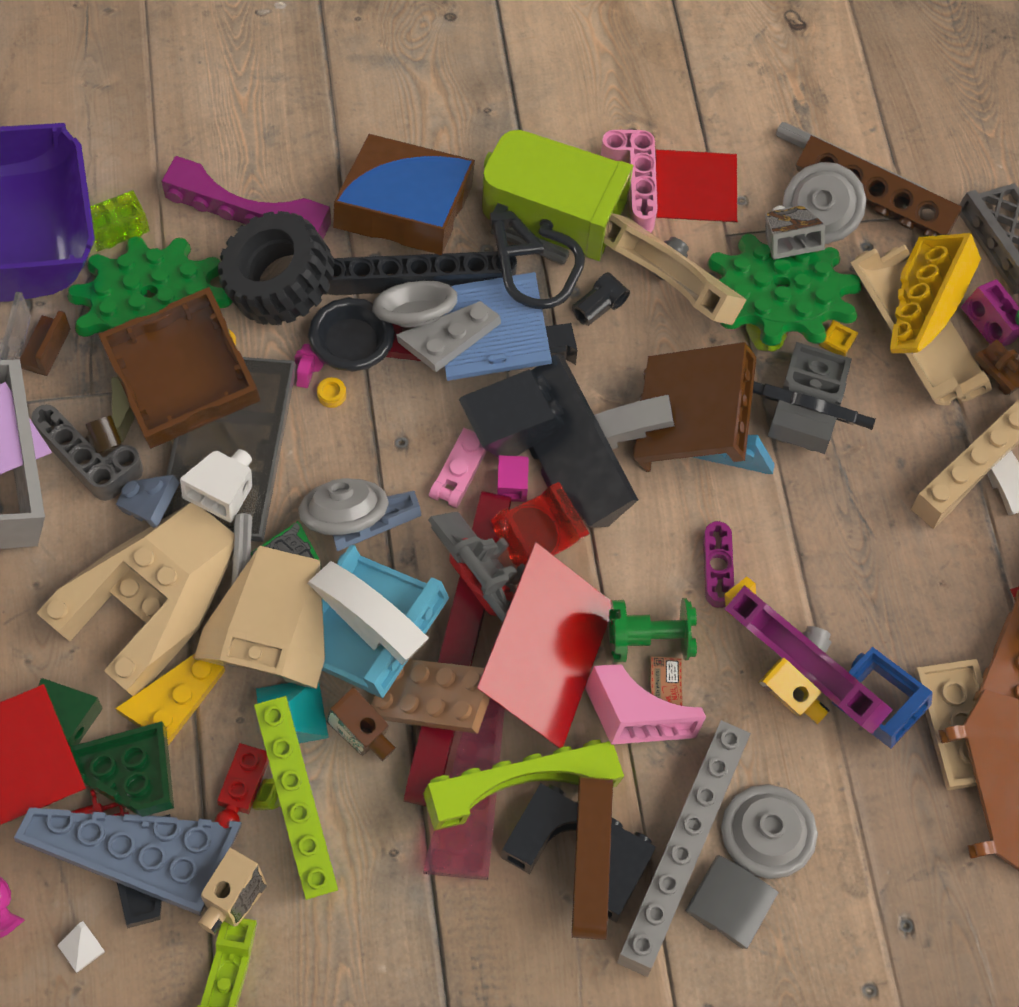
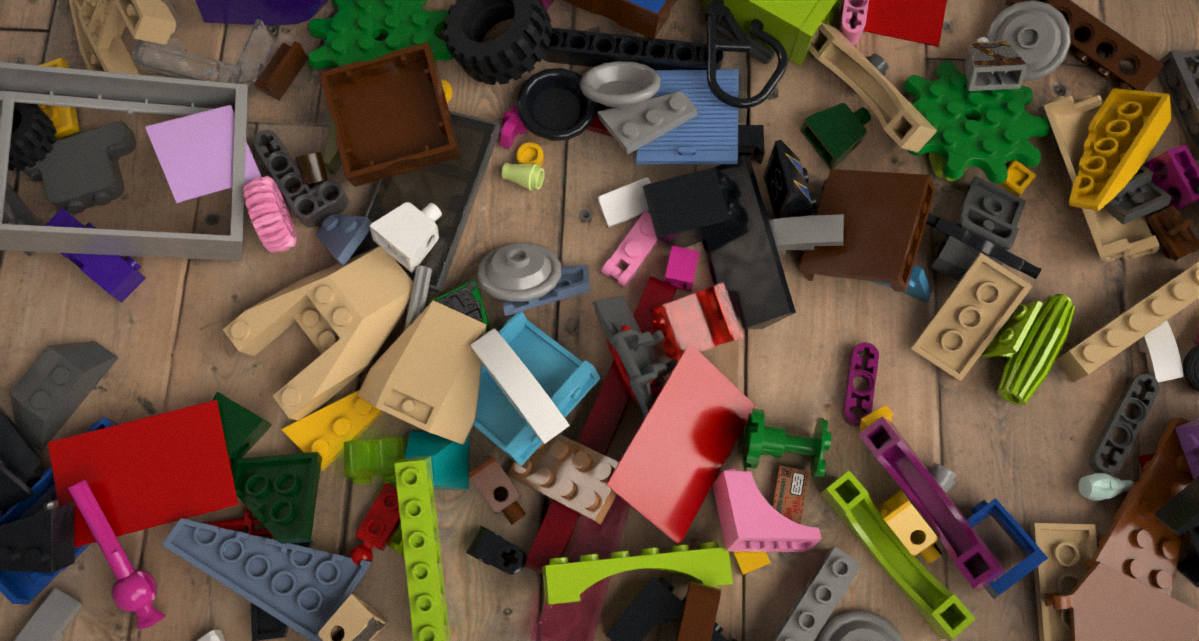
camera: 15 degrees right, 10 degrees up
(66, 488) = (269, 214): none -> bright pink gear
(224, 721) = (373, 459): none -> clear neon green brick
(331, 411) = (526, 175): none -> yellowish green cone
(367, 790) = (493, 548): none -> black piece
(441, 423) = (624, 203): none -> white slope
(605, 294) = (801, 100): black piece -> none
(606, 375) = (787, 184): none -> black slope
(637, 754) = (750, 560): none -> yellow tile
(647, 320) = (836, 132): none -> dark green torso
(815, 476) = (971, 316): none -> tan plate
(830, 760) = (929, 597): none -> lime arch
(879, 495) = (1031, 343): none -> lime plate
(959, 338) = (1138, 198): none -> dark grey slope
(978, 622) = (1102, 486): none -> light aqua piece
(994, 561) = (1128, 426): none -> dark grey beam

